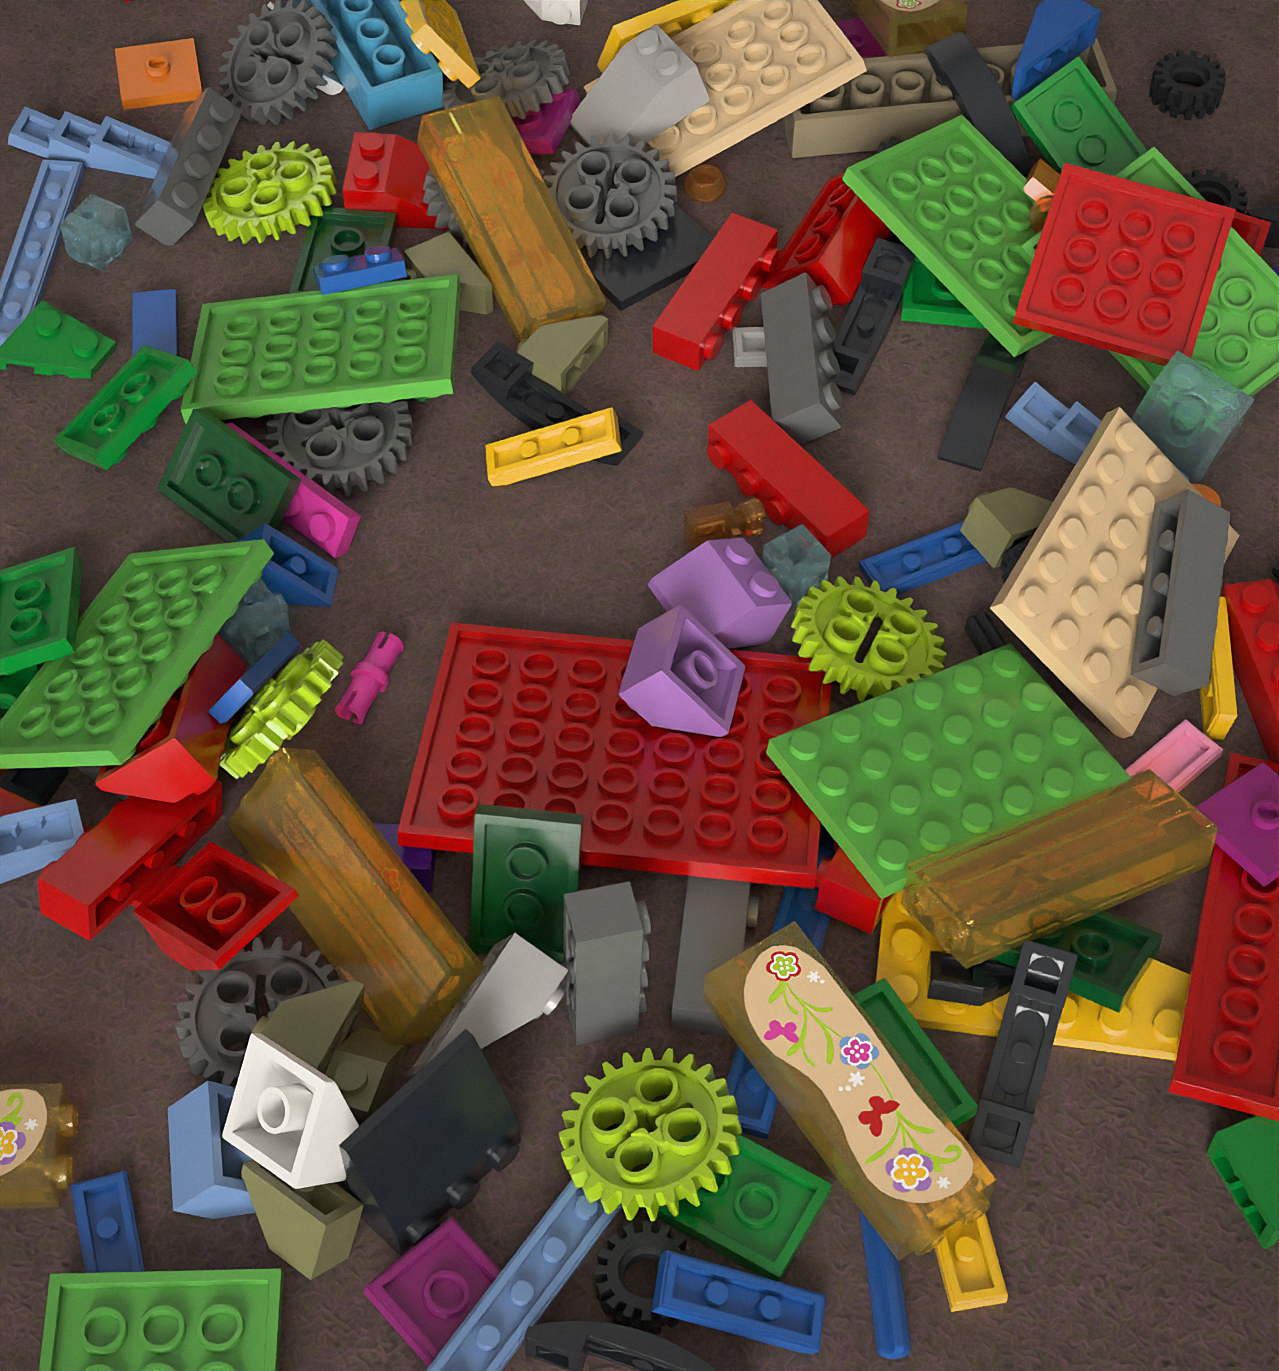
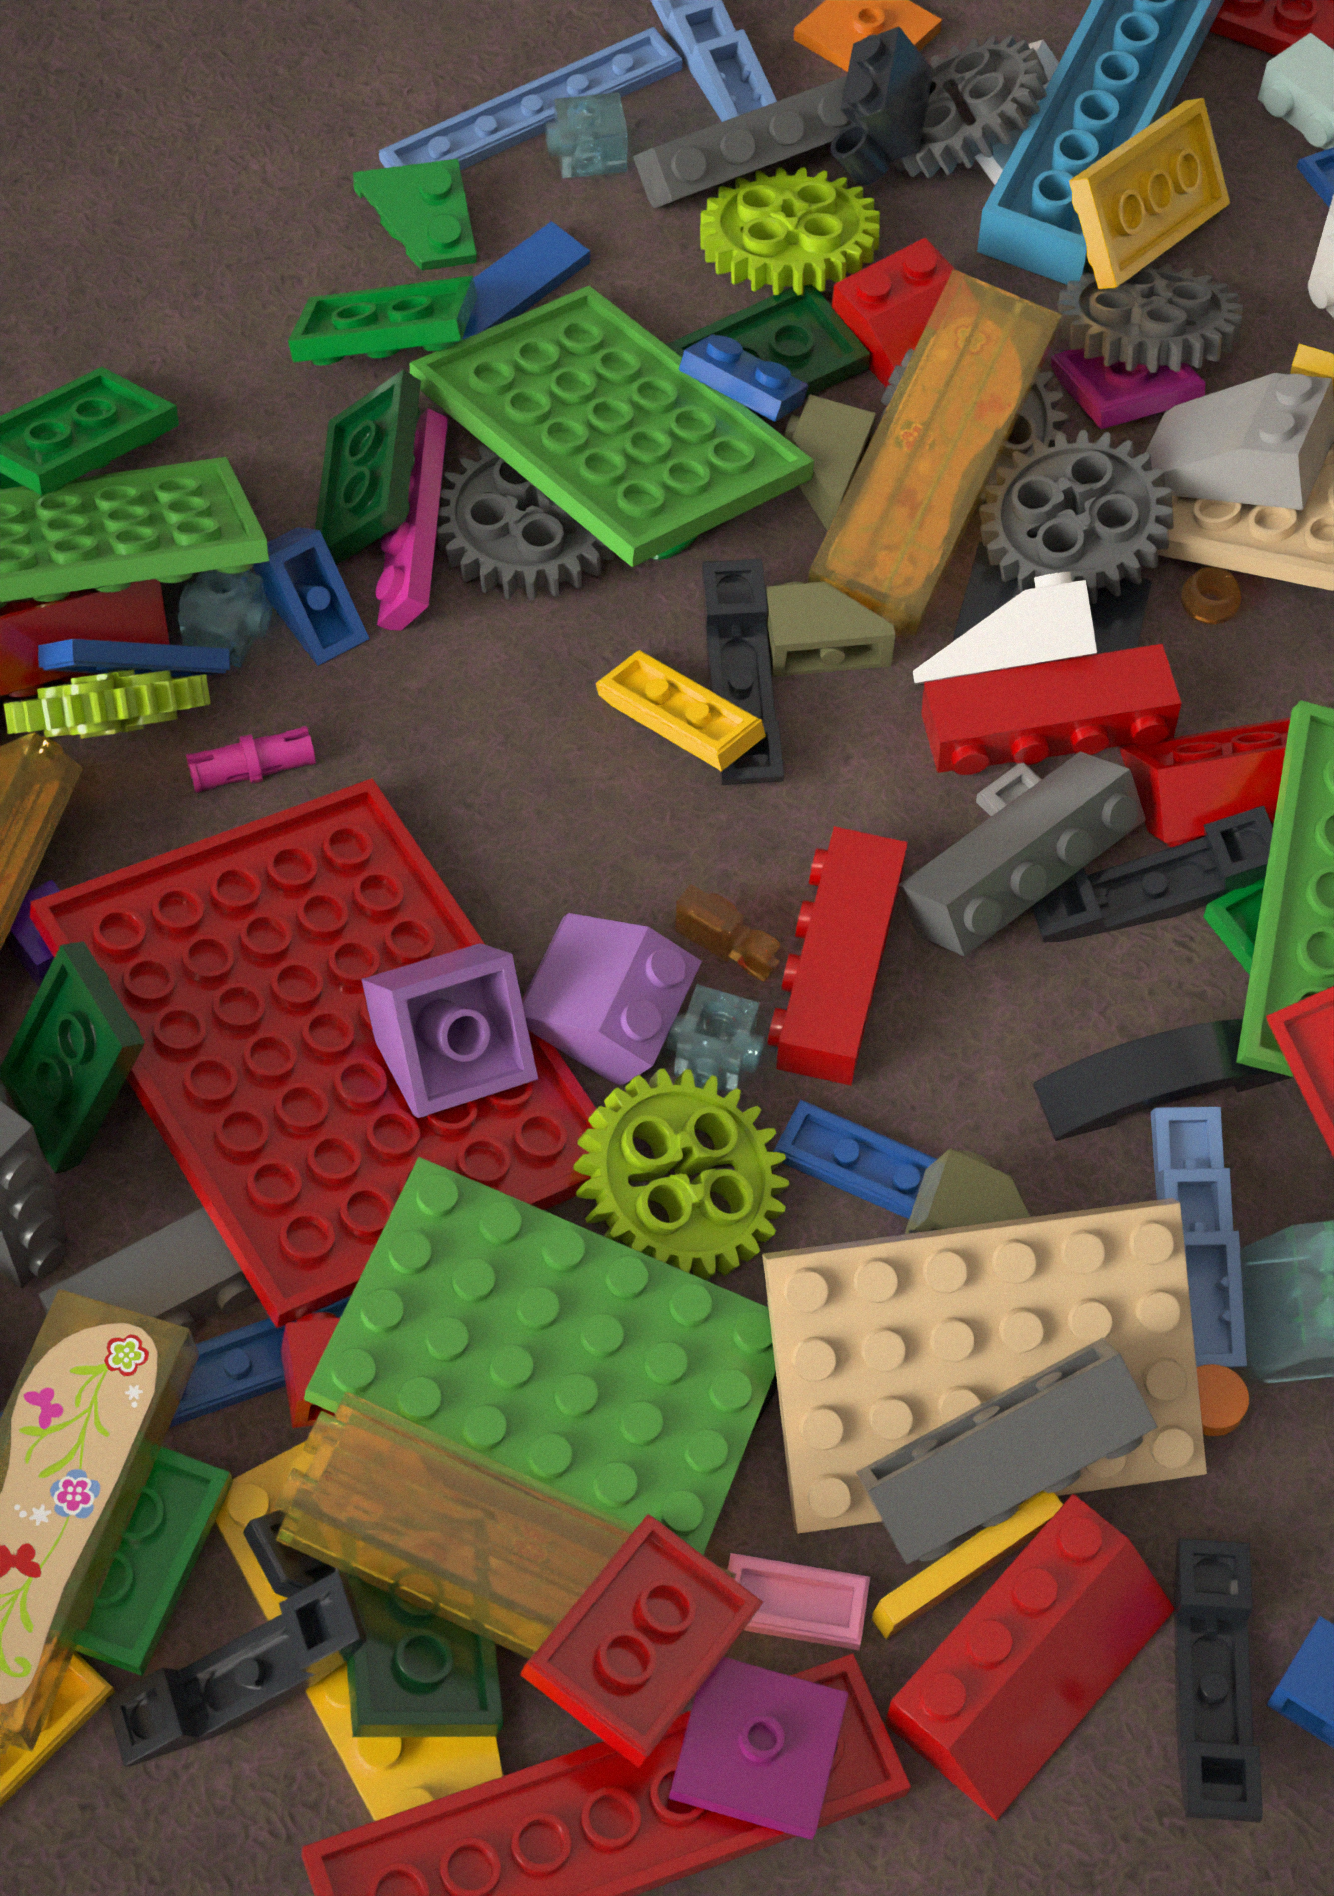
camera: 50 degrees right, 5 degrees up
(245, 88) = (885, 103): none -> black hinge
(661, 266) = (1028, 630): none -> white slope
(1173, 825) = (642, 1639): none -> red tile

